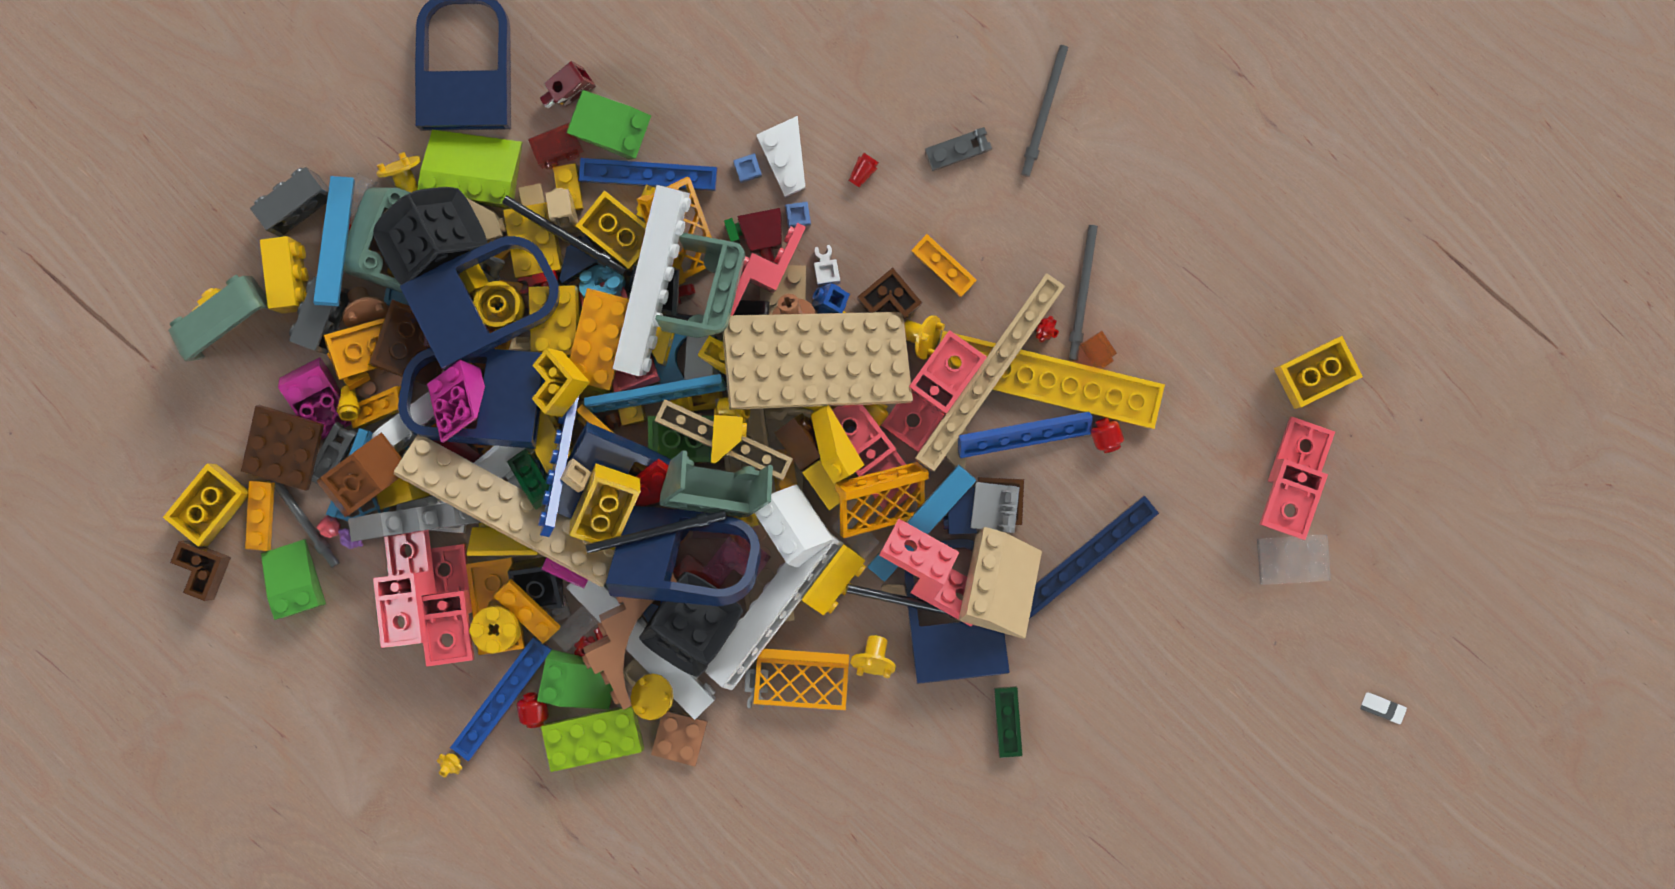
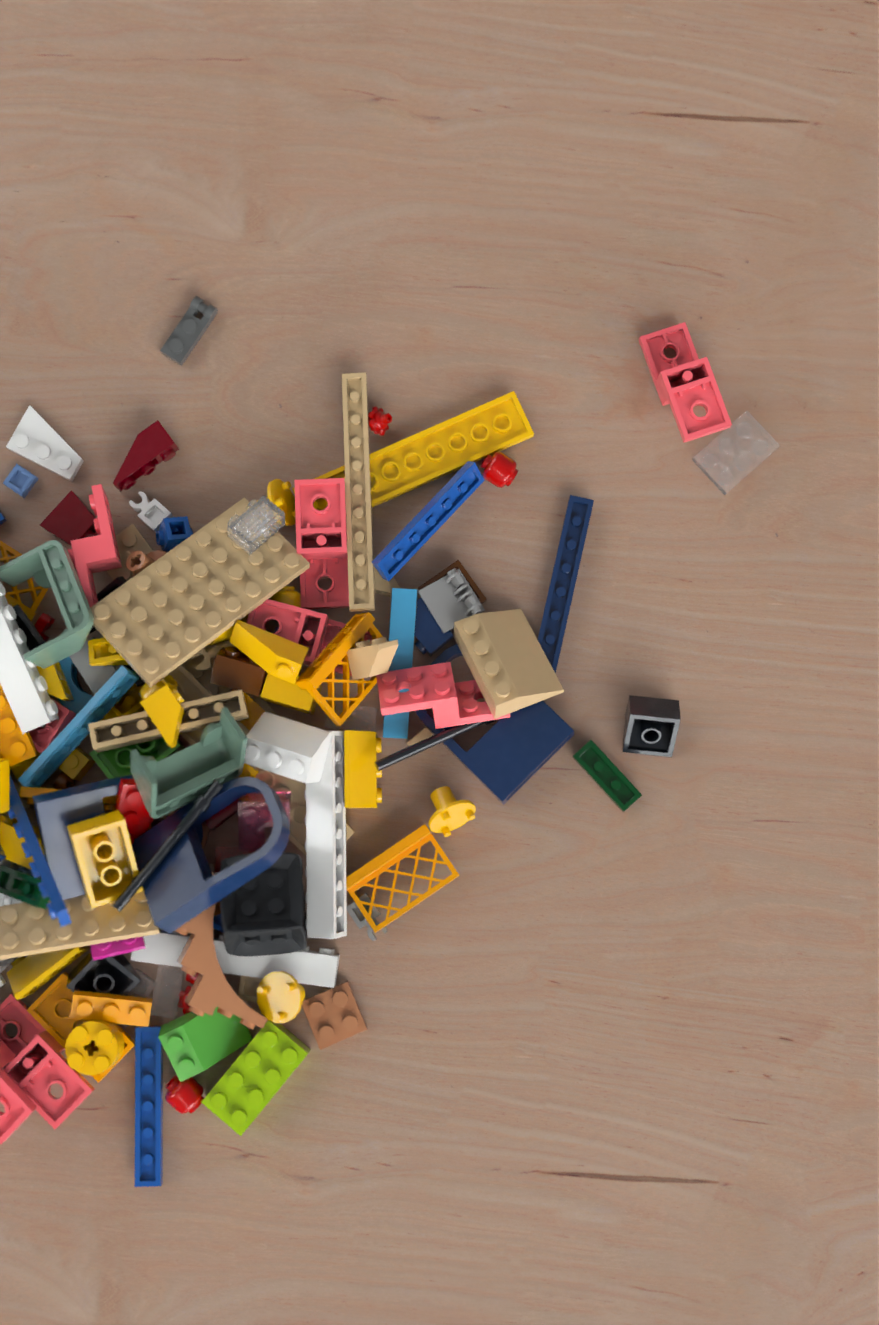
camera: 40 degrees left, 5 degrees down
(449, 764) = (145, 1202): yellow plant -> none
(575, 475) = (56, 850): tan tile -> none
(734, 230) = (42, 538): green plate -> none
(798, 213) = (91, 480): medium blue tile -> none
(859, 219) = (146, 452): none -> dark red slope
(863, 169) = (120, 406): red cone -> none
(892, 290) = (219, 488): reddish brown brick -> none
(895, 343) = (255, 524): none -> clear brick
(903, 507) = (371, 659): none -> tan slope
(943, 265) = (251, 434): light orange plate -> none
(1032, 151) = (253, 286): dark grey bar -> none
(1069, 711) = (651, 726): none -> black slope
(1076, 336) = (408, 407): dark grey bar -> none
(1099, 350) = (436, 404): clear orange brick -> none
(1318, 372) = (631, 284): yellow brick -> none

